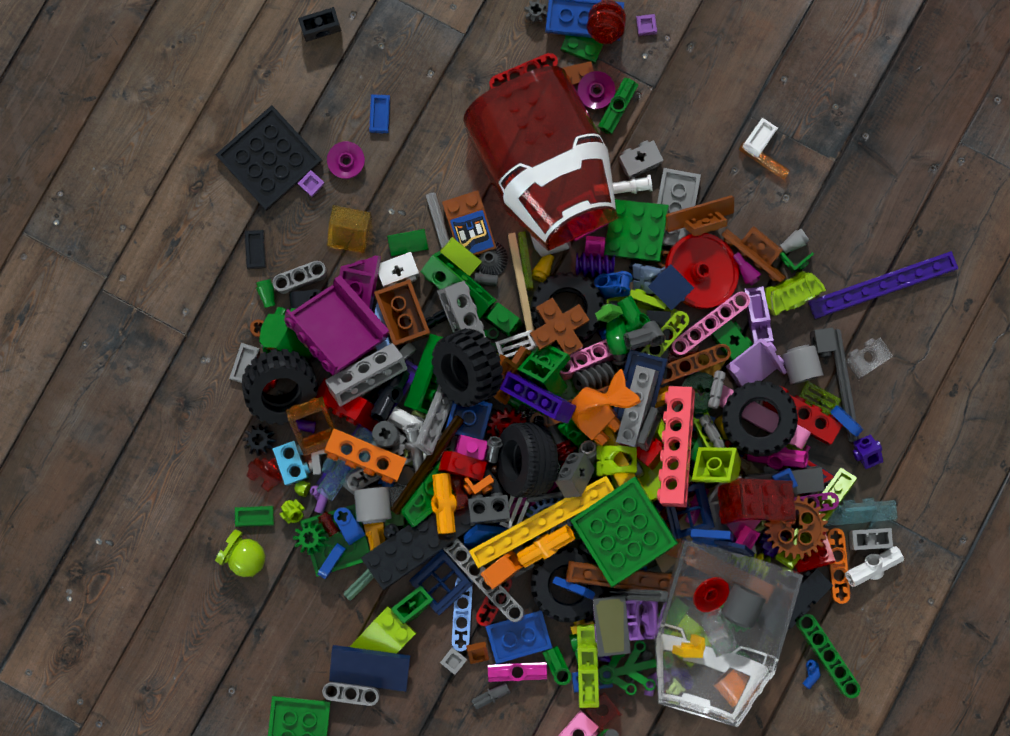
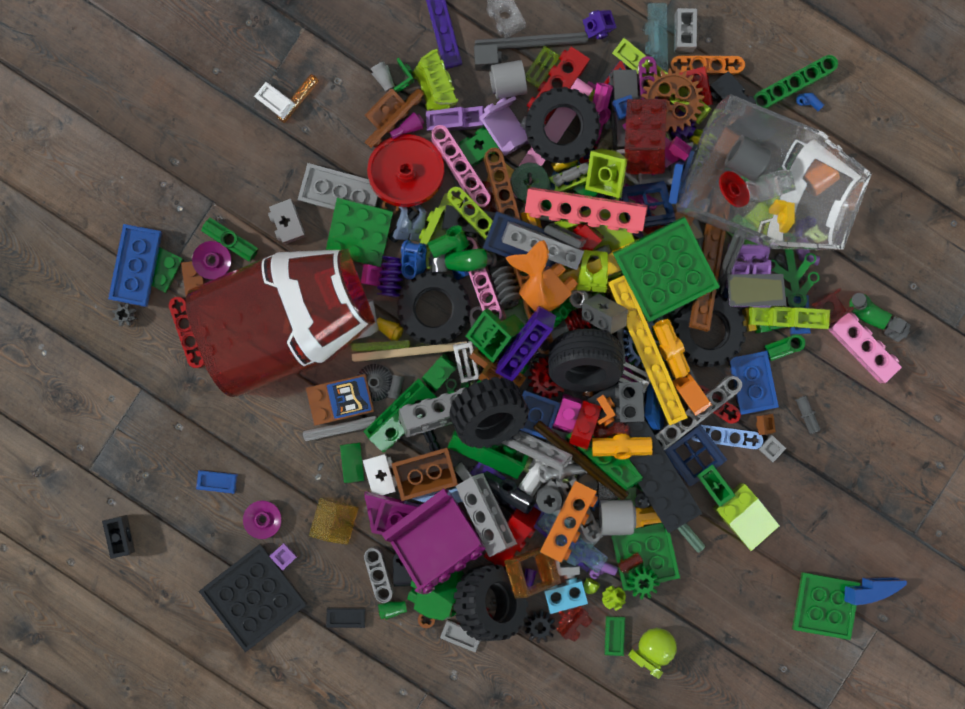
camera: 90 degrees left, 5 degrees up
(331, 561) = (667, 562): blue beam -> none
(342, 697) = (800, 560): light grey beam -> none
(350, 528) = (636, 542): blue piece -> none
(369, 668) = (773, 531): dark blue tile -> none
(460, 256) = (371, 410): lime tile -> none
(494, 445) = (567, 391): dark grey pin -> none
(503, 672) = (787, 373): dark pink piece -> none
(559, 327) = (454, 317): dark orange plate -> none
(573, 587) = (715, 322): blue tile -> none
(606, 21) = (143, 243): clear red piece -> none
(608, 313) = (443, 266): bright green plate -> none
(633, 185) = (312, 230): white pin -> none
(646, 25) = (148, 204): medium lavender tile -> none
(648, 334) = (470, 227): dark grey piece -> none
(671, 287) = (421, 202): dark blue piece -> none
(702, 217) = (352, 165): dark orange bracket -> none
(716, 389) = (530, 165): light grey axle -> none
(846, 420) = (567, 42): blue beam -> none
(874, 566) = (712, 30): white piece -> none

